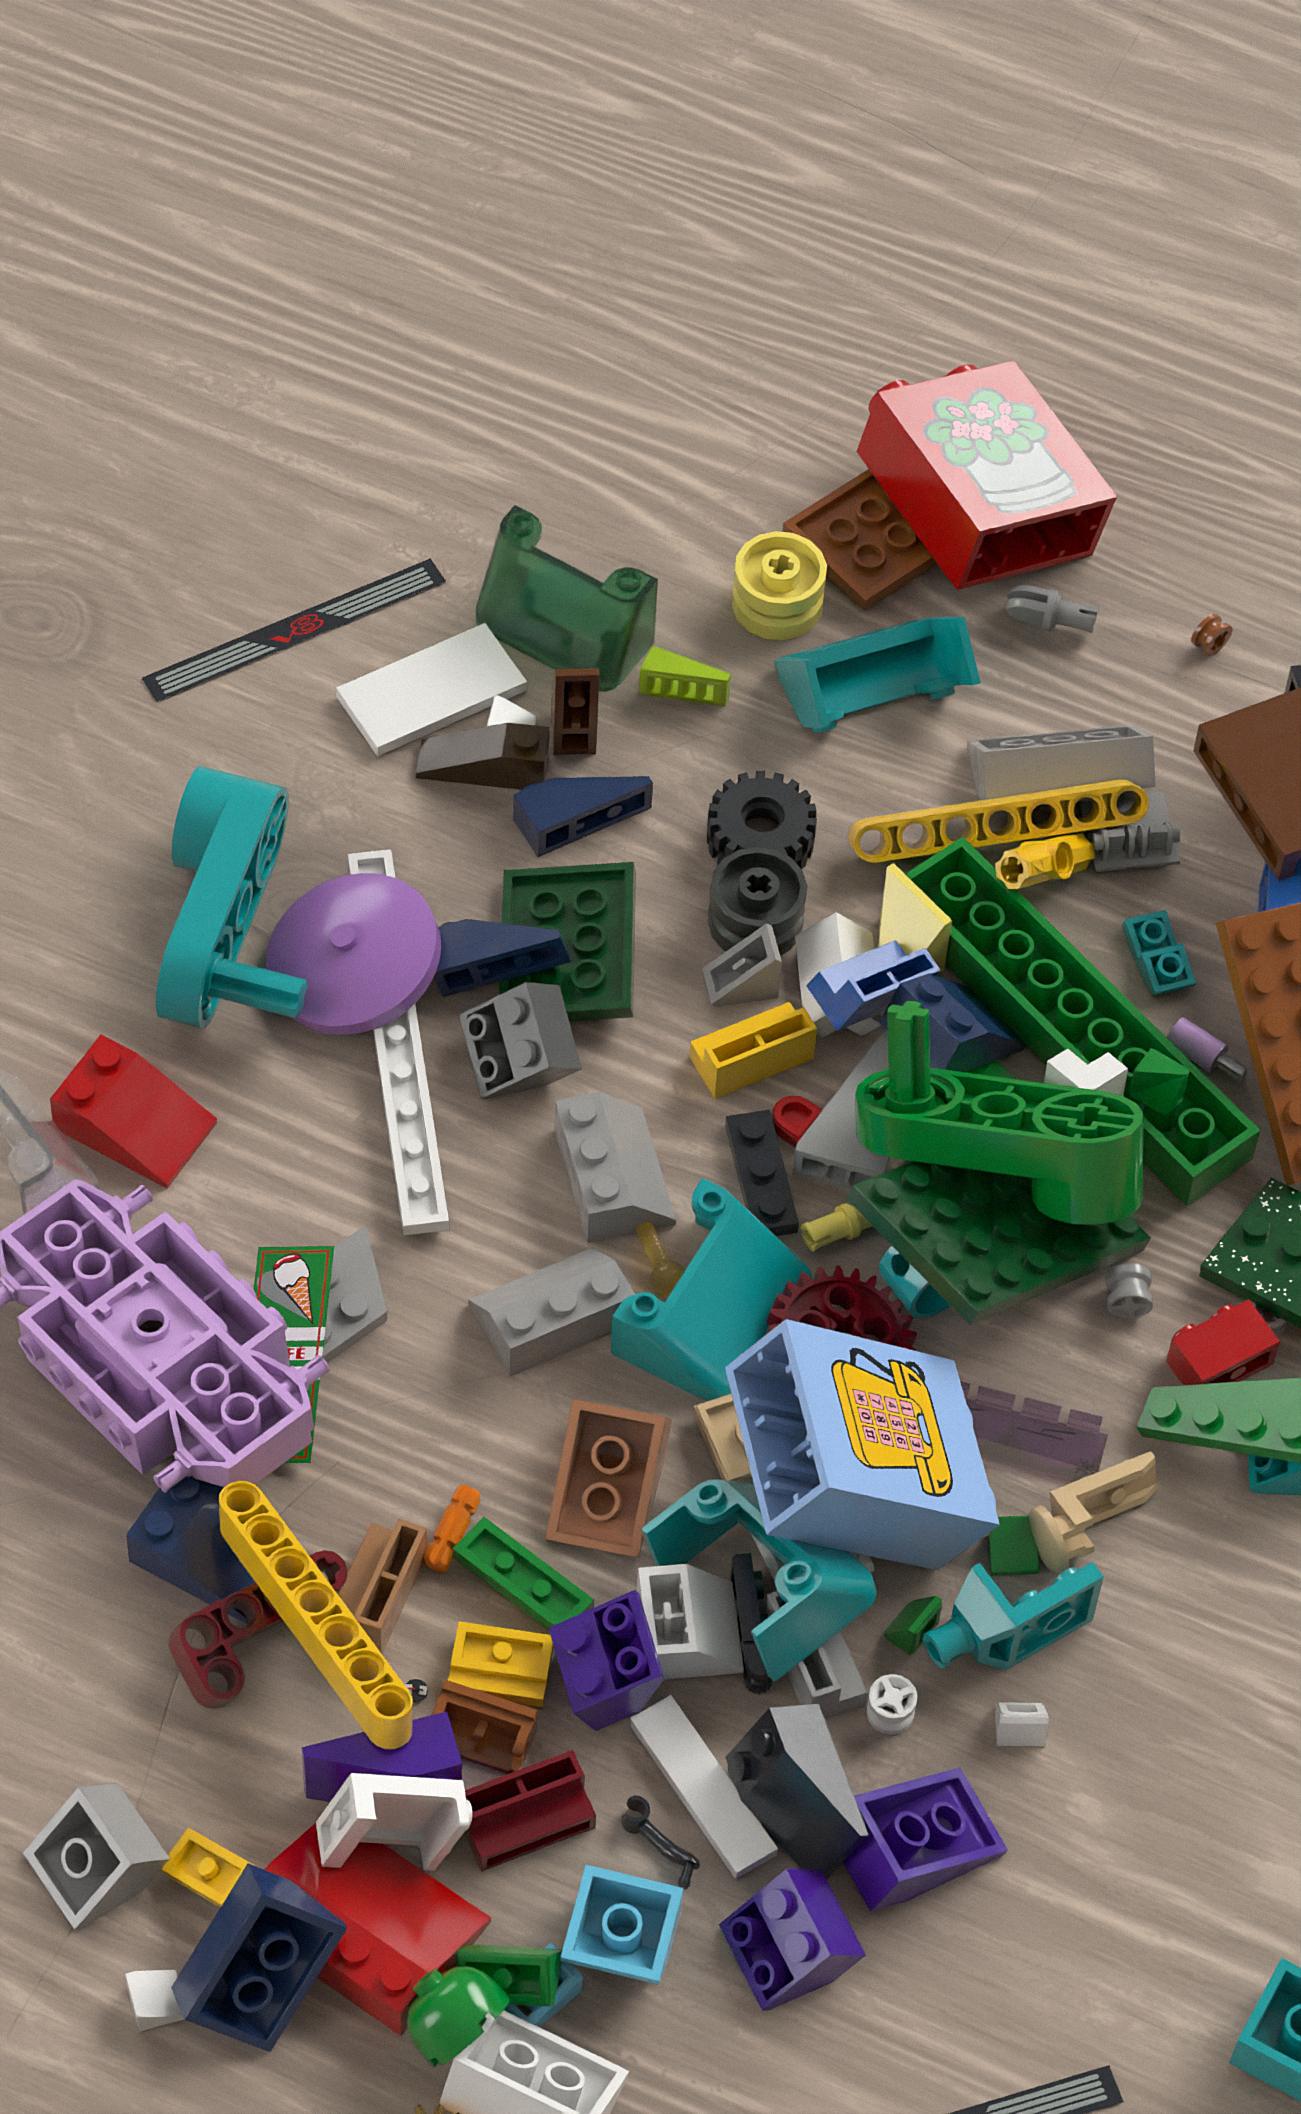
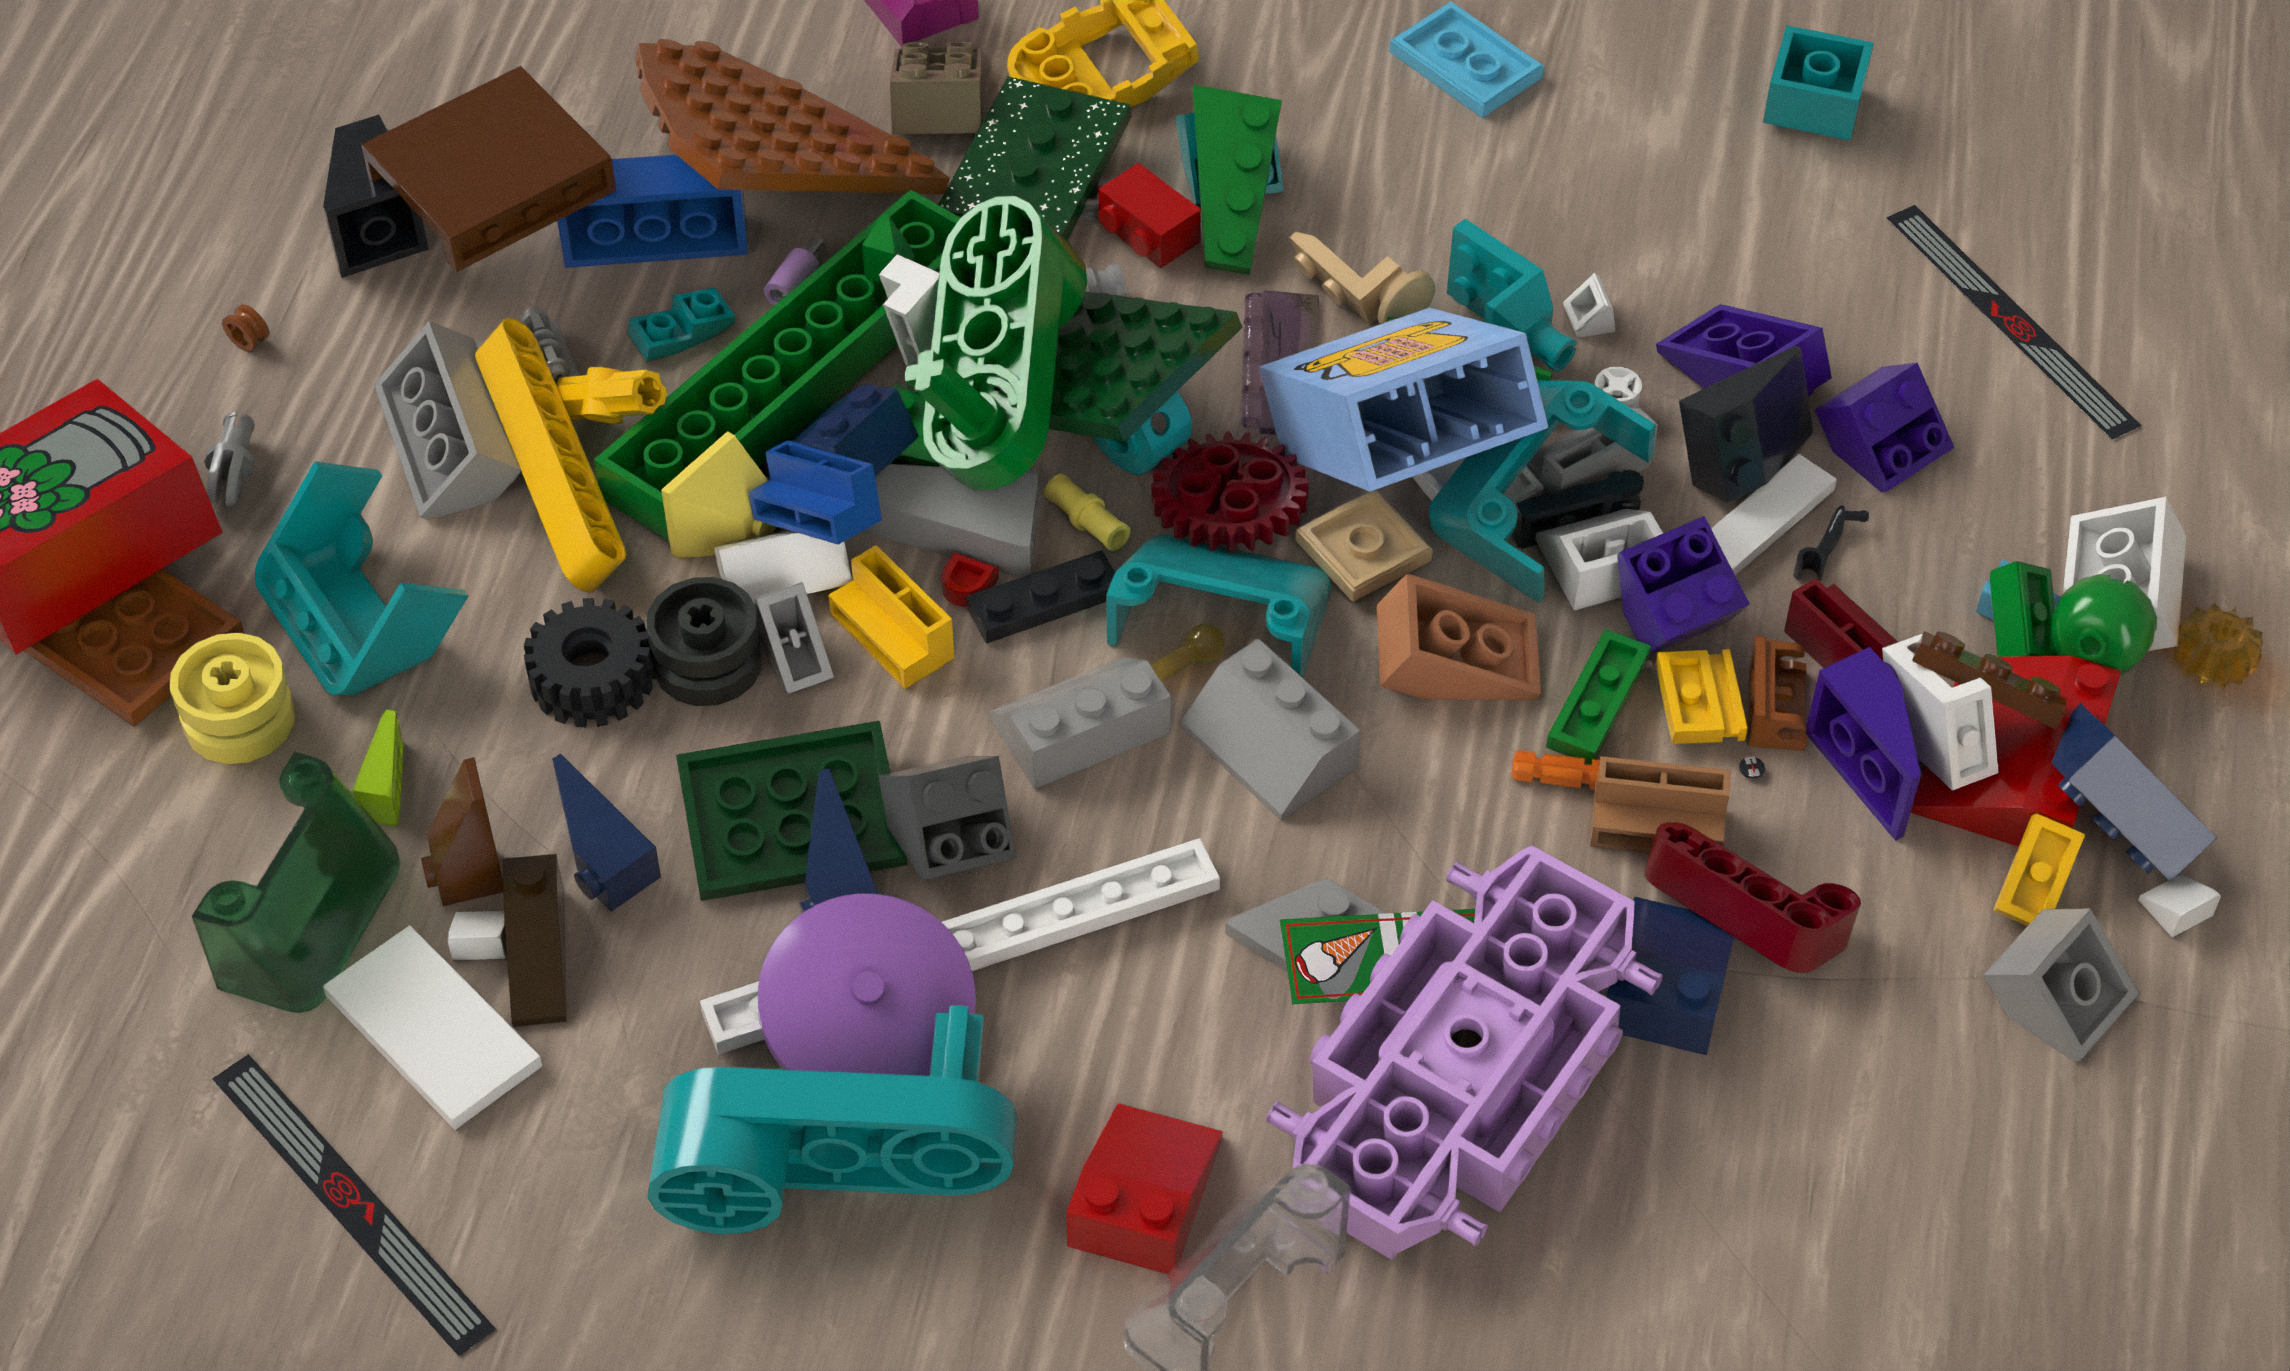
camera: 100 degrees left, 5 degrees down
(316, 1615) = (1755, 819): yellow beam -> none
(393, 1853) = (2032, 698): none -> reddish brown plate
(623, 1924) = (1946, 534): medium azure slope -> none

